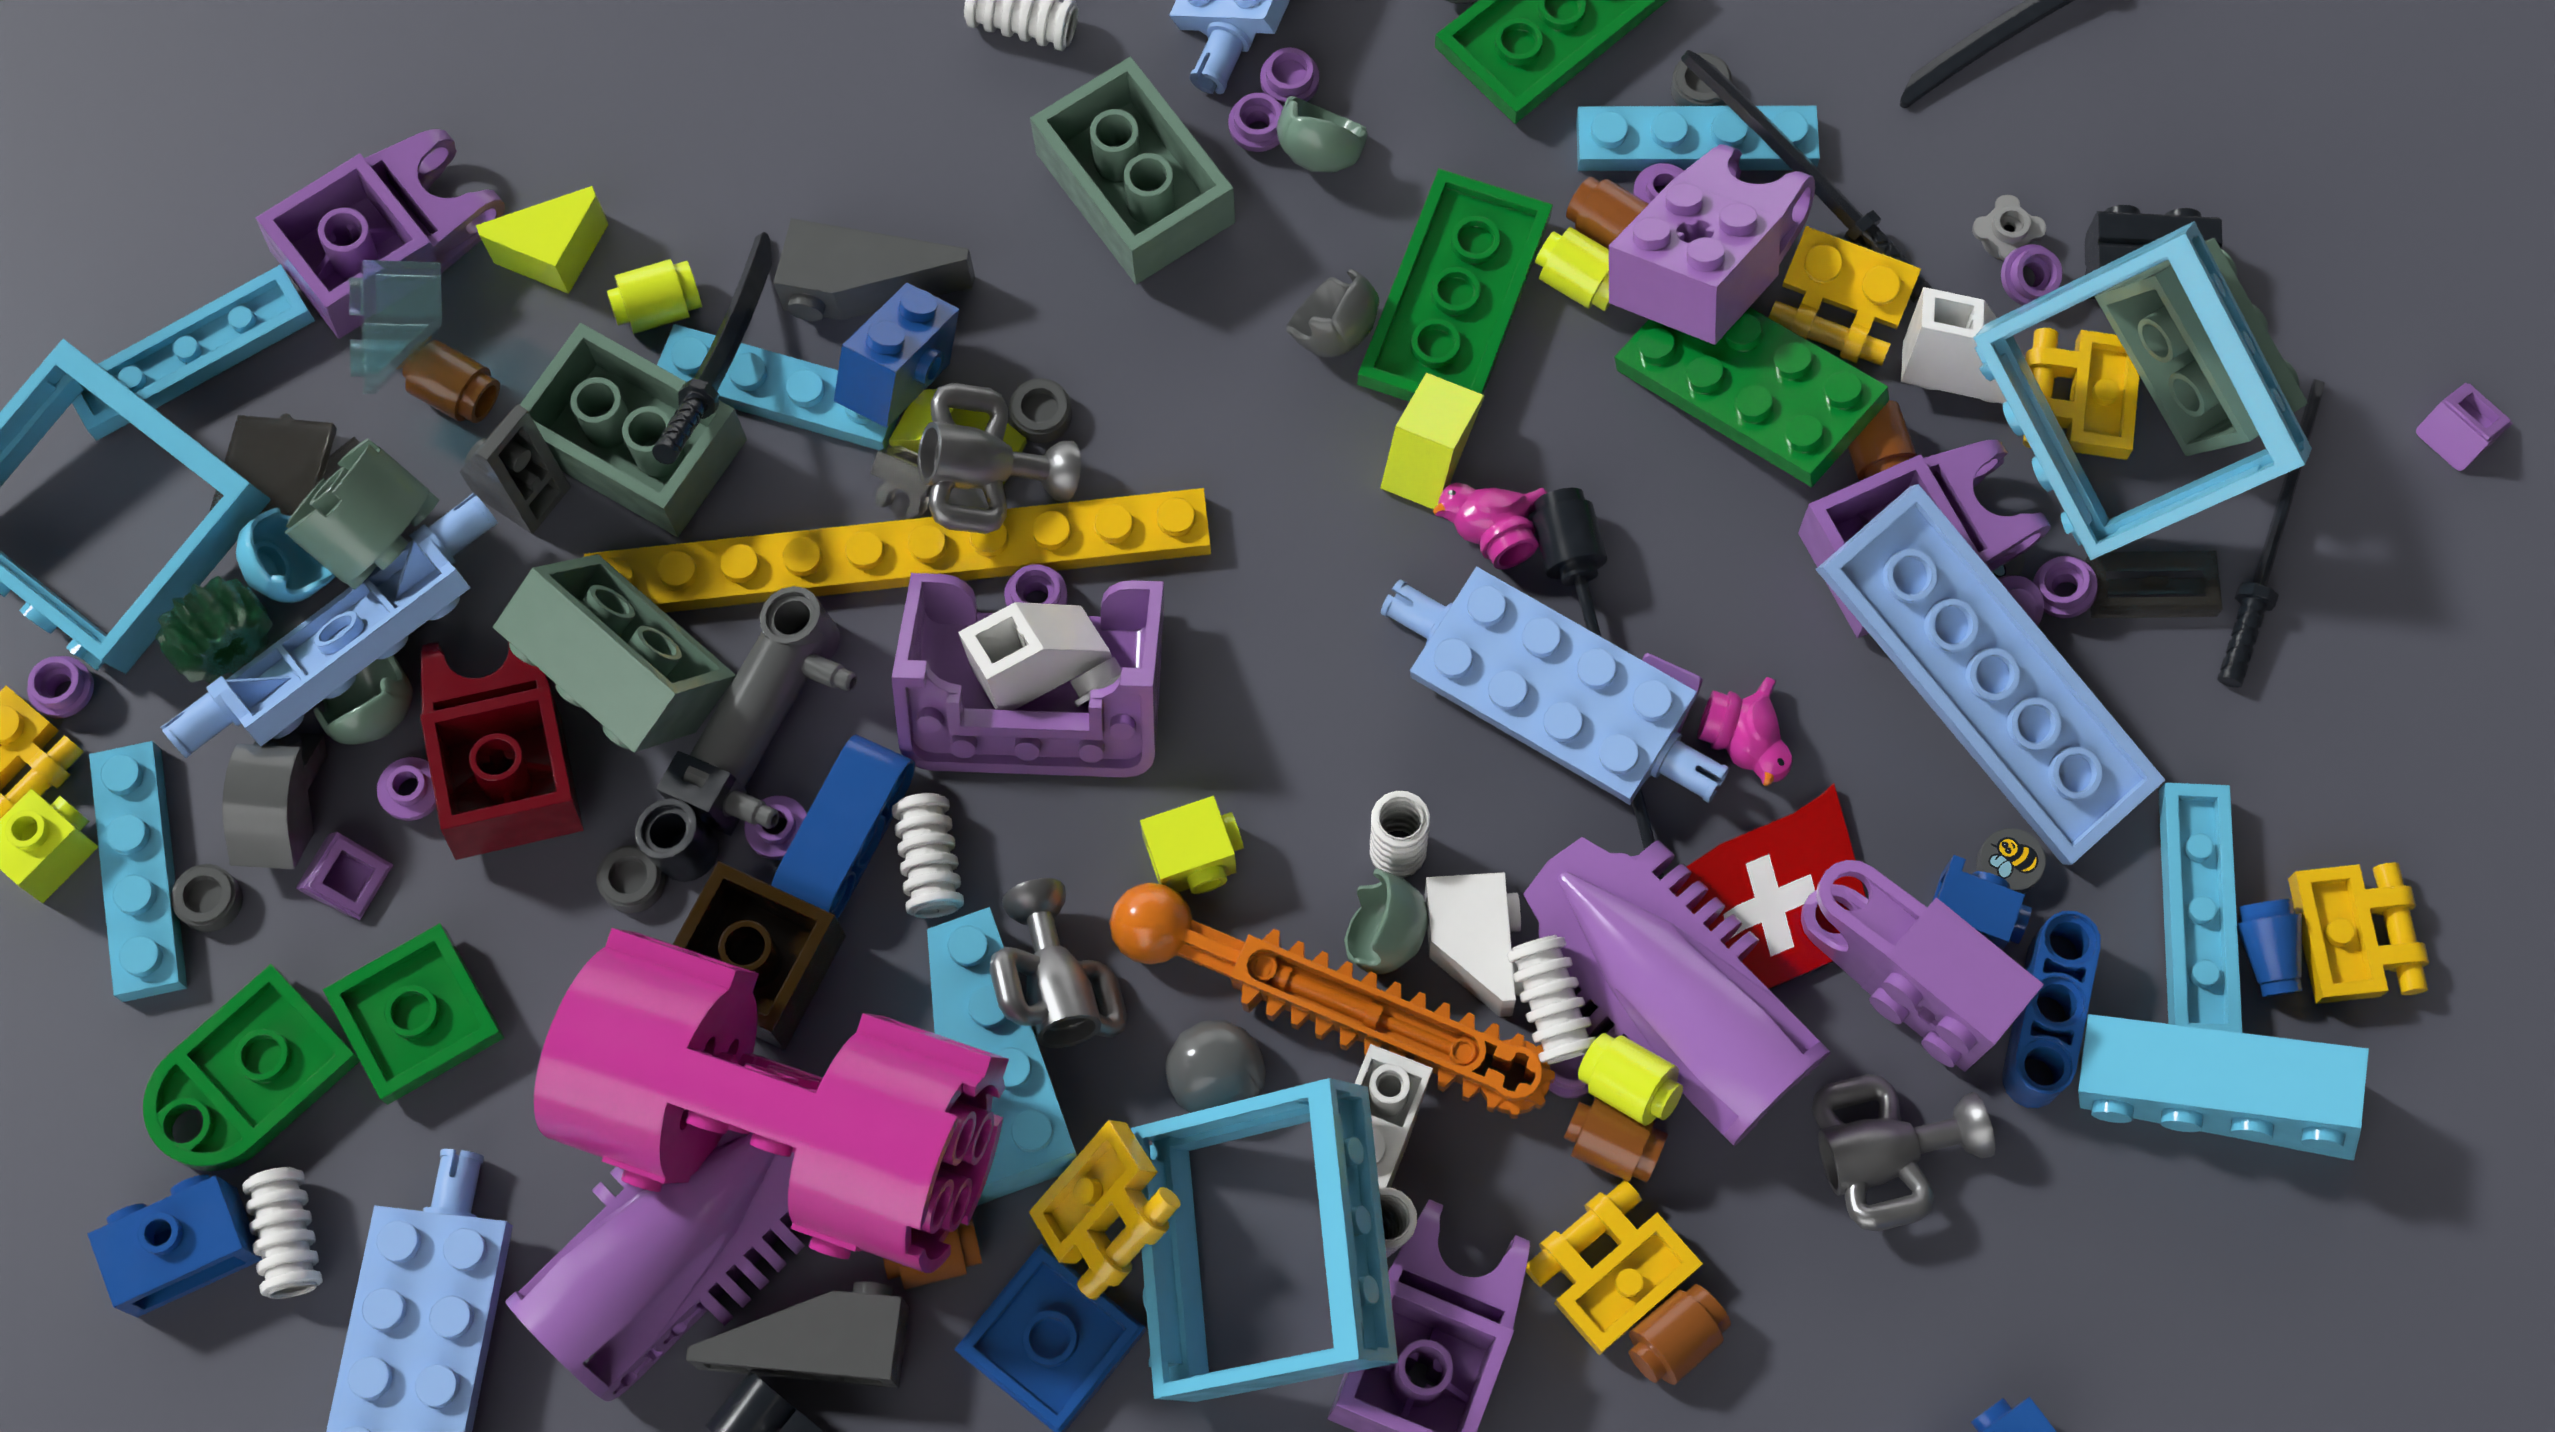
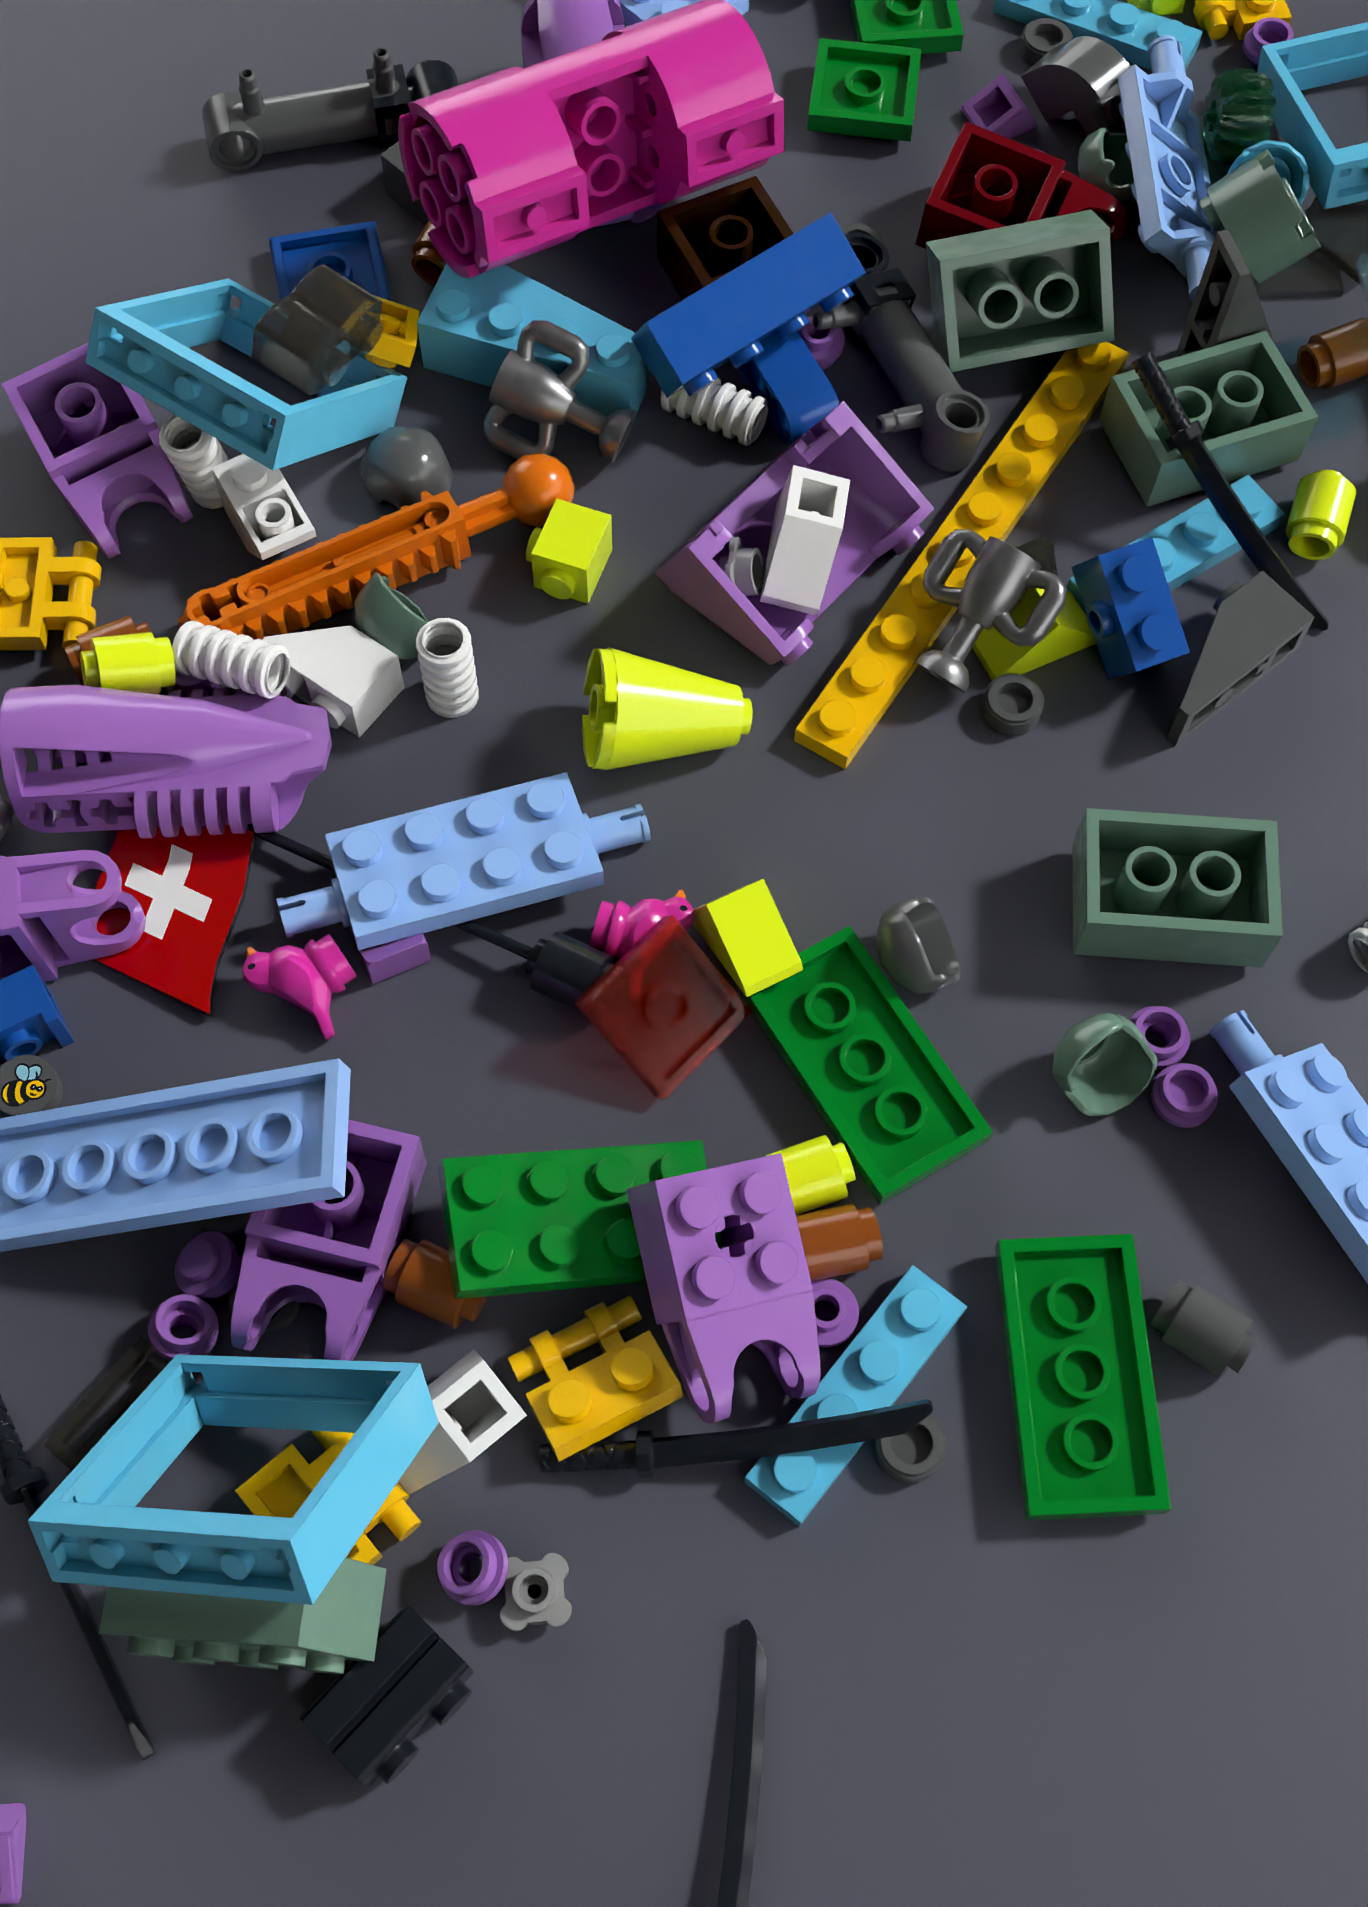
camera: 125 degrees right, 5 degrees down
(832, 851) = (748, 306): none -> blue brick
(1036, 578) = (861, 583): medium lavender plate -> none
(1195, 1166) = (317, 330): none -> clear smoke brick
(1300, 648) = (656, 711): none -> neon yellow cone
(1542, 448) = (664, 1007): none -> clear red tile

